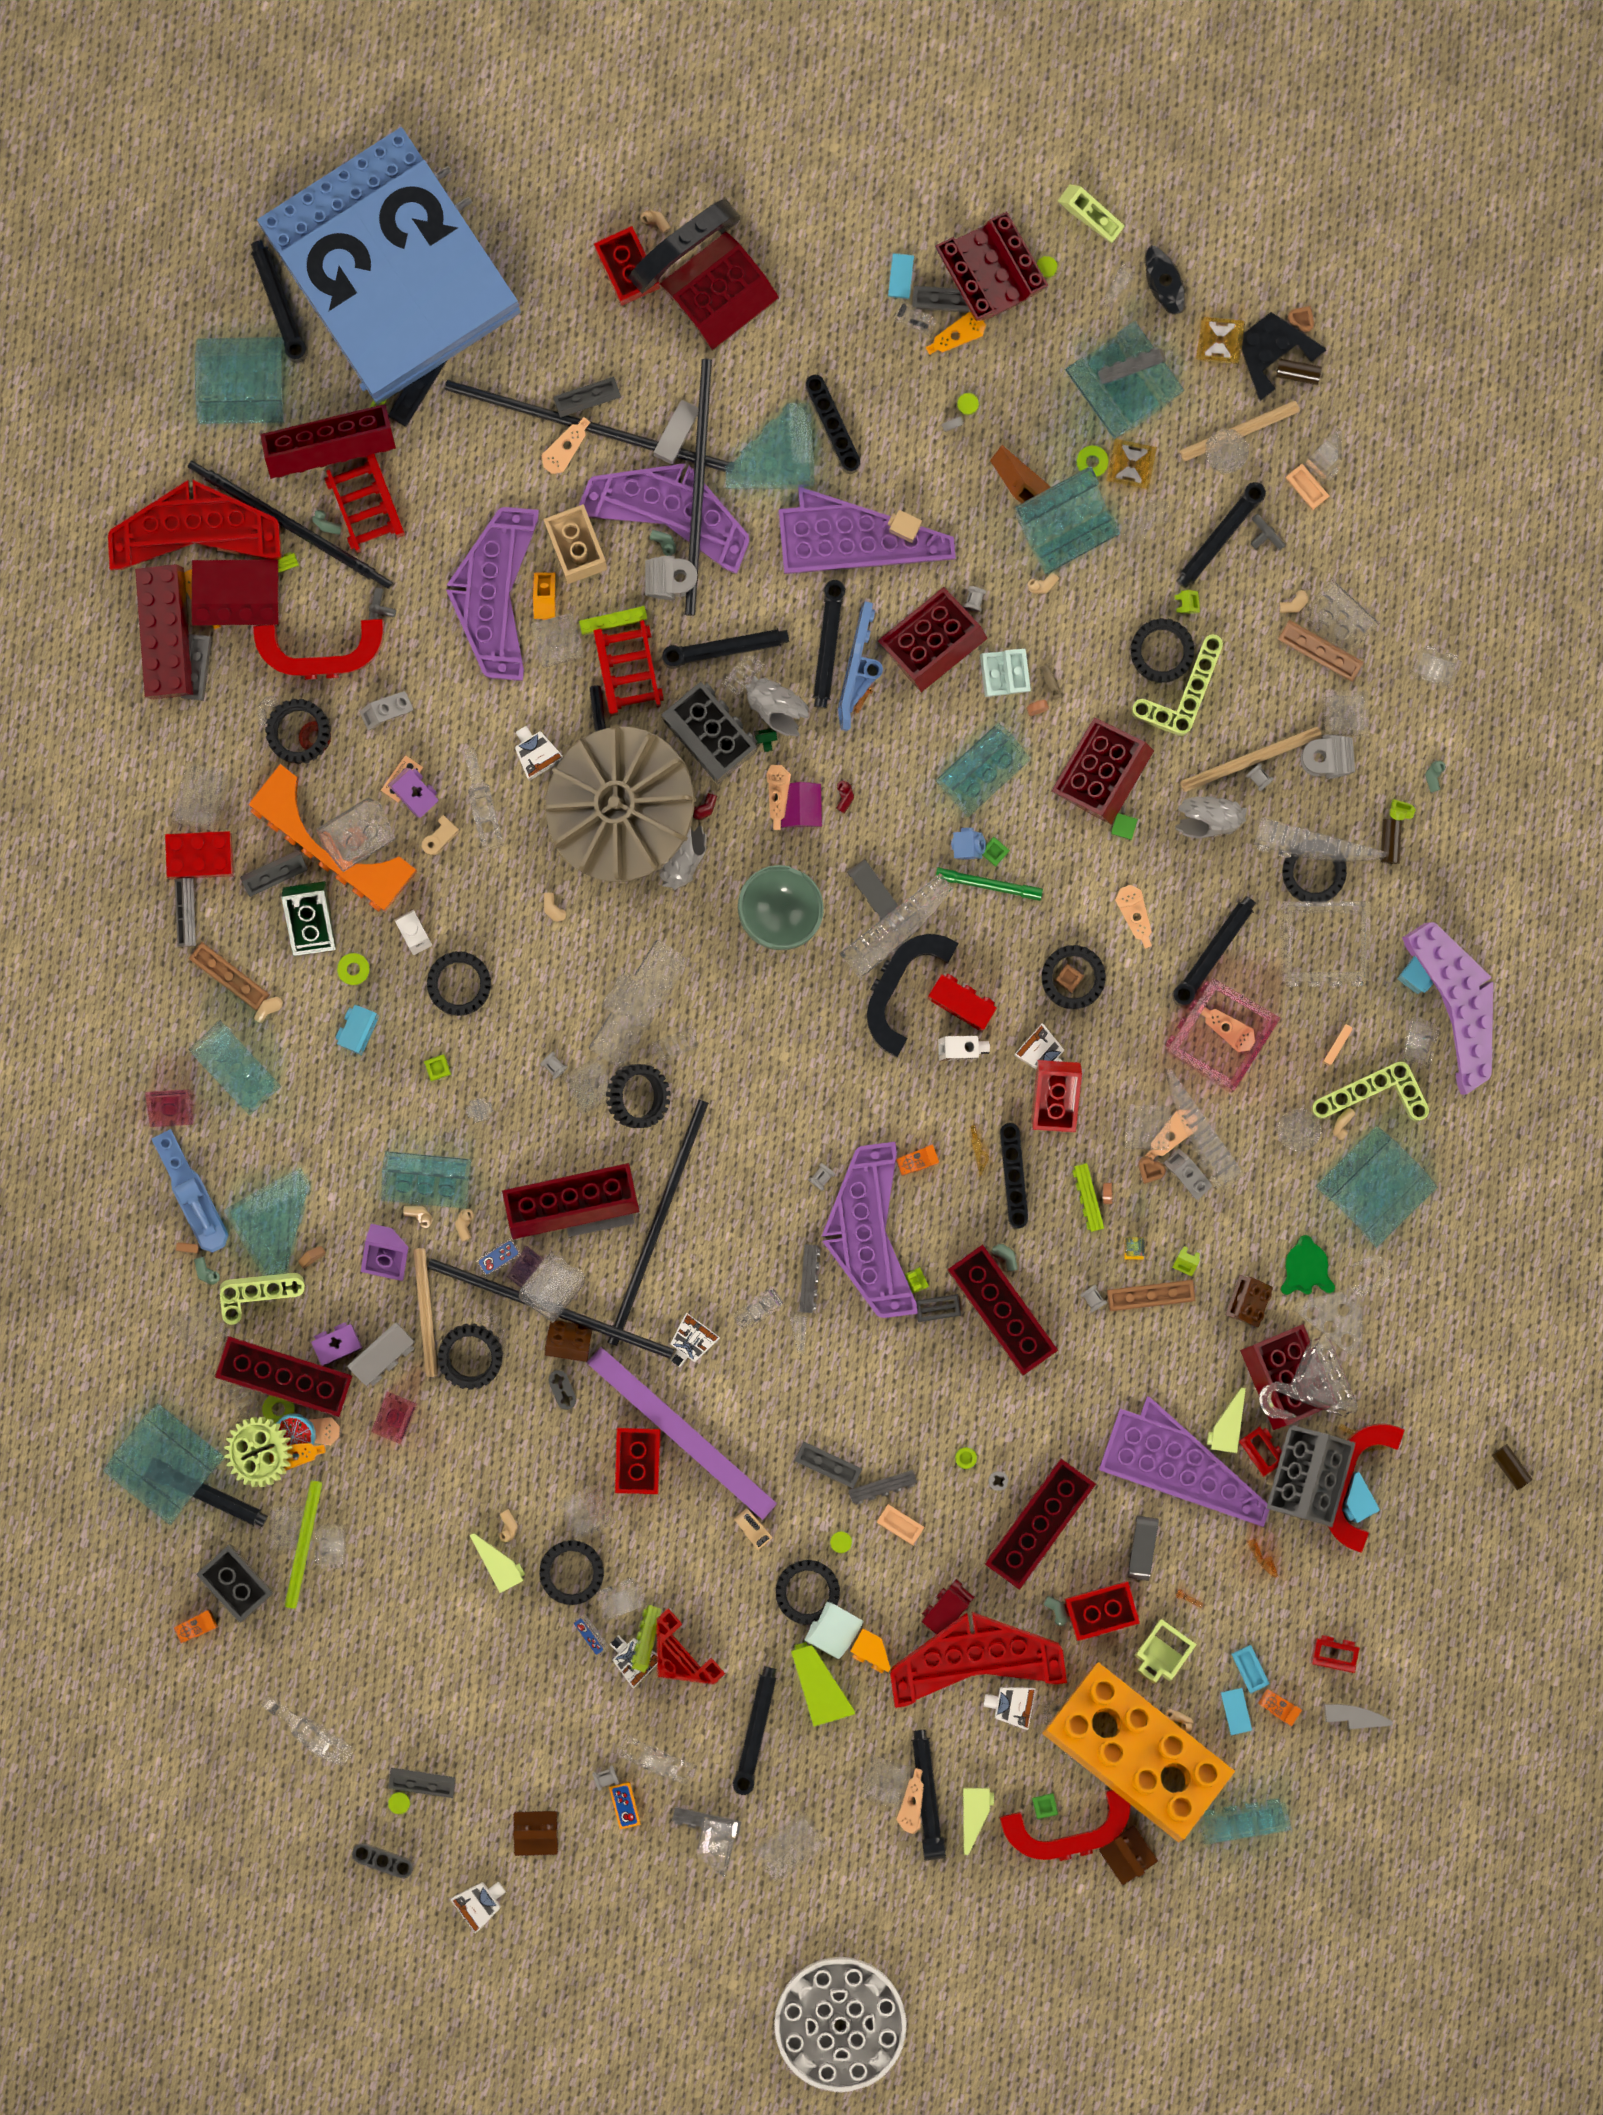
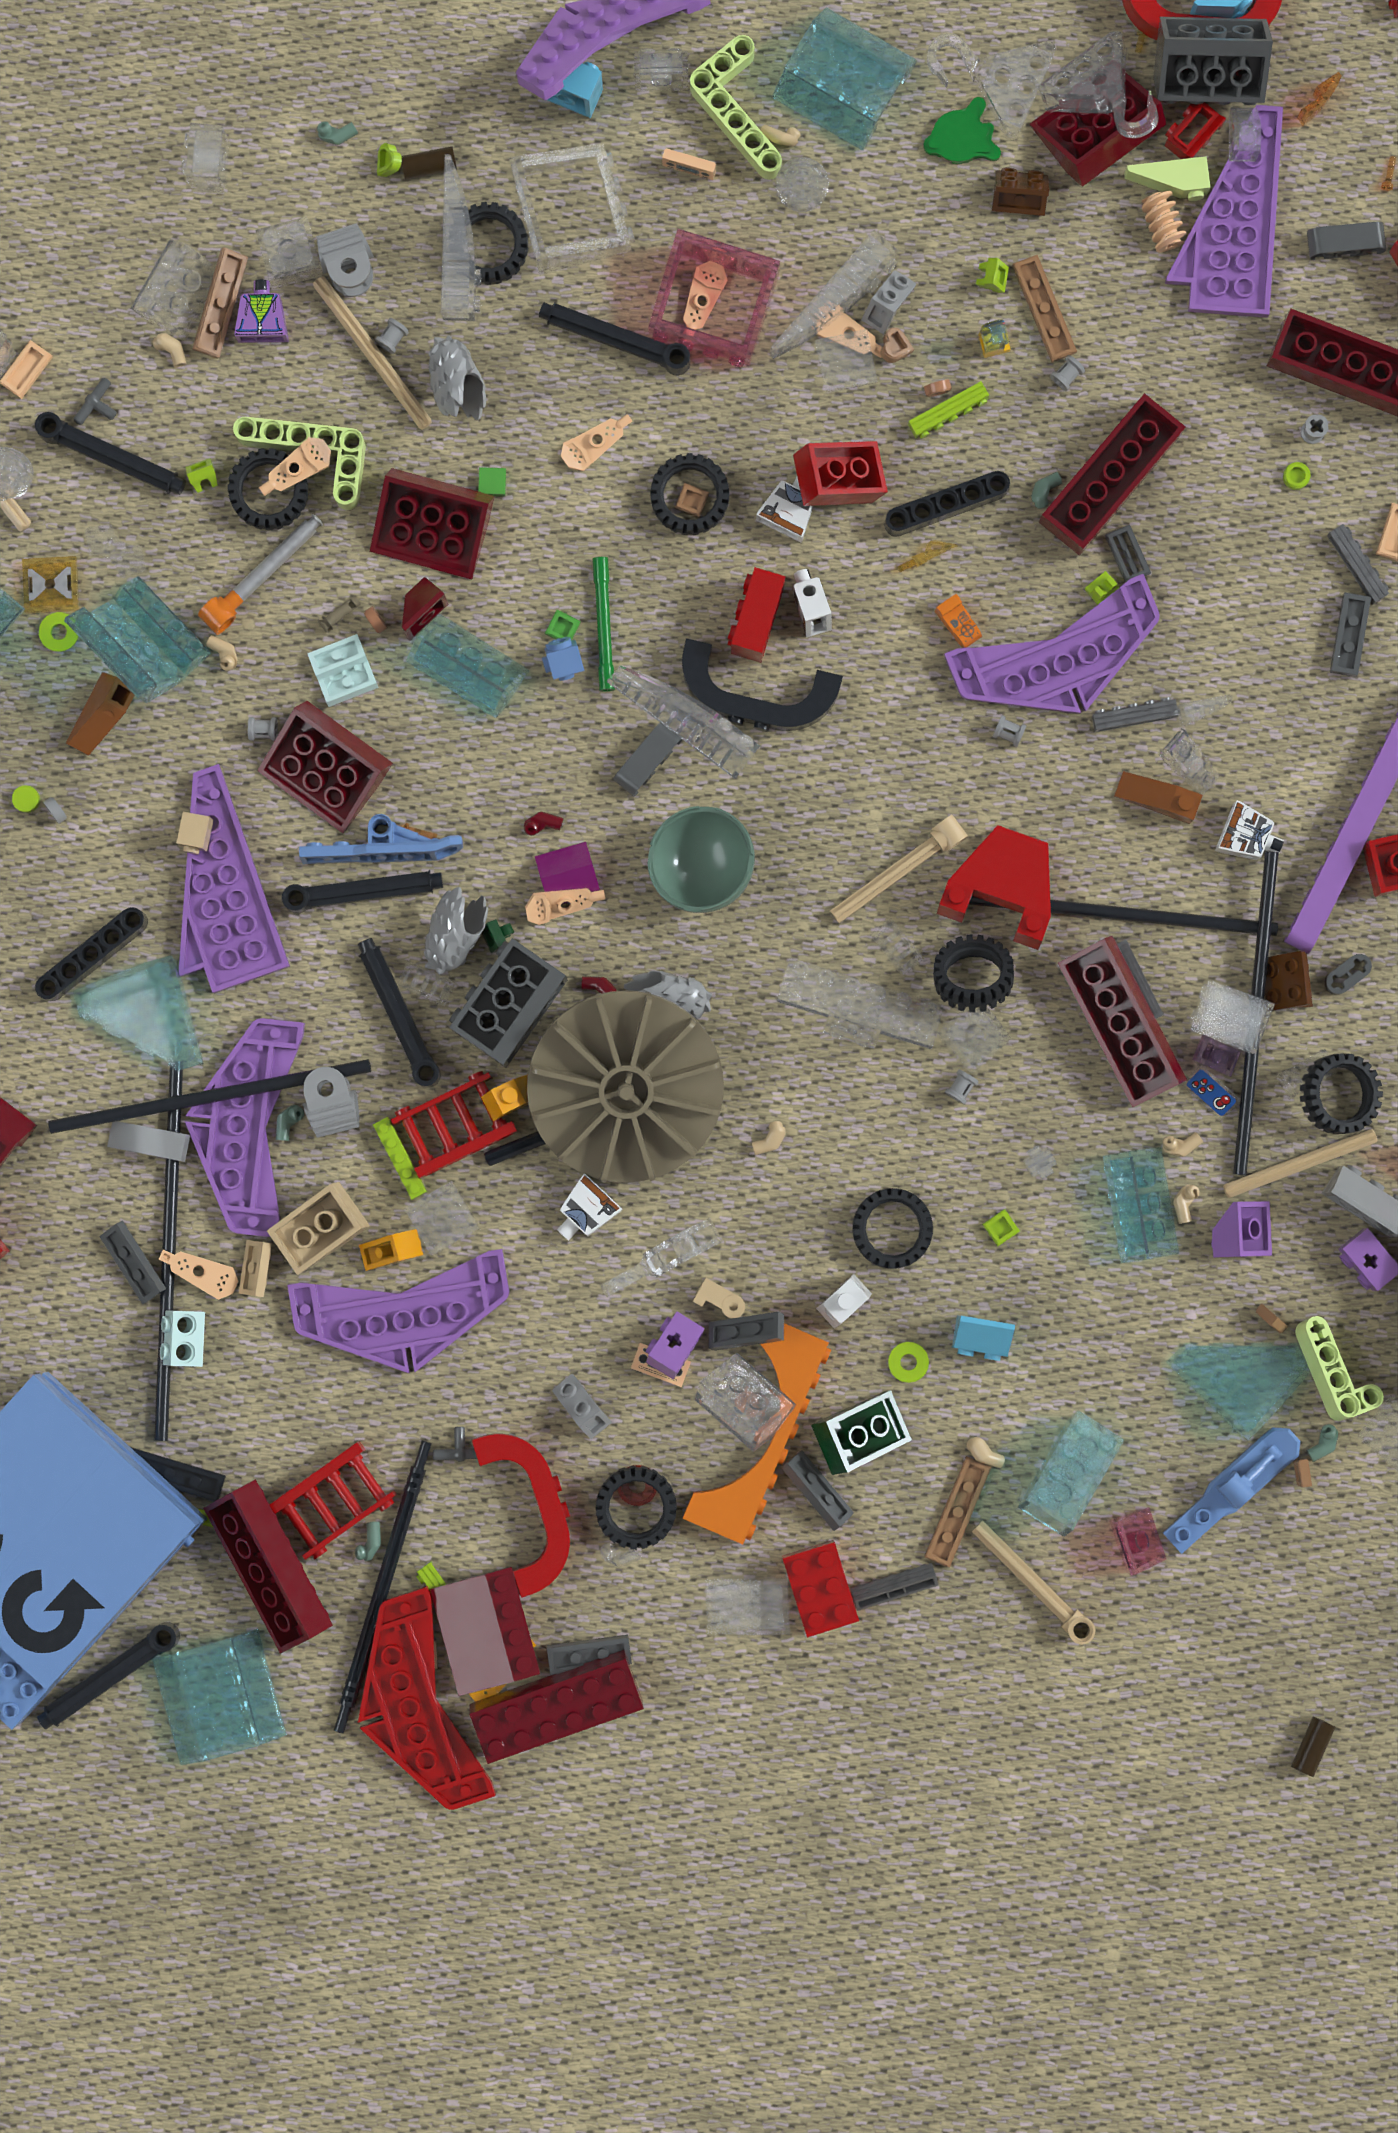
camera: 100 degrees left, 0 degrees up
(157, 1020) = (1035, 1584): none -> tan piece
(409, 849) = (746, 1331): none -> dark grey plate
(517, 426) = (191, 1338): none -> light aqua brick
(557, 488) = (255, 1268): none -> tan plate
(637, 712) = (507, 1097): none -> light orange slope
(709, 1146) = (1007, 872): none -> red wedge
(740, 1278) = (1159, 796): none -> dark orange slope
(751, 1103) = (943, 837): none -> tan piece
(1038, 744) = (421, 607): none -> dark red slope
(1075, 590) = (220, 612): none -> flat silver piece
(1173, 684) = (307, 465): none -> light nougat piece
(1195, 1406) = (1162, 221): none -> light nougat piece
(1248, 1488) = (1244, 134): none -> clear slope
(1301, 679) = (261, 316): none -> torso

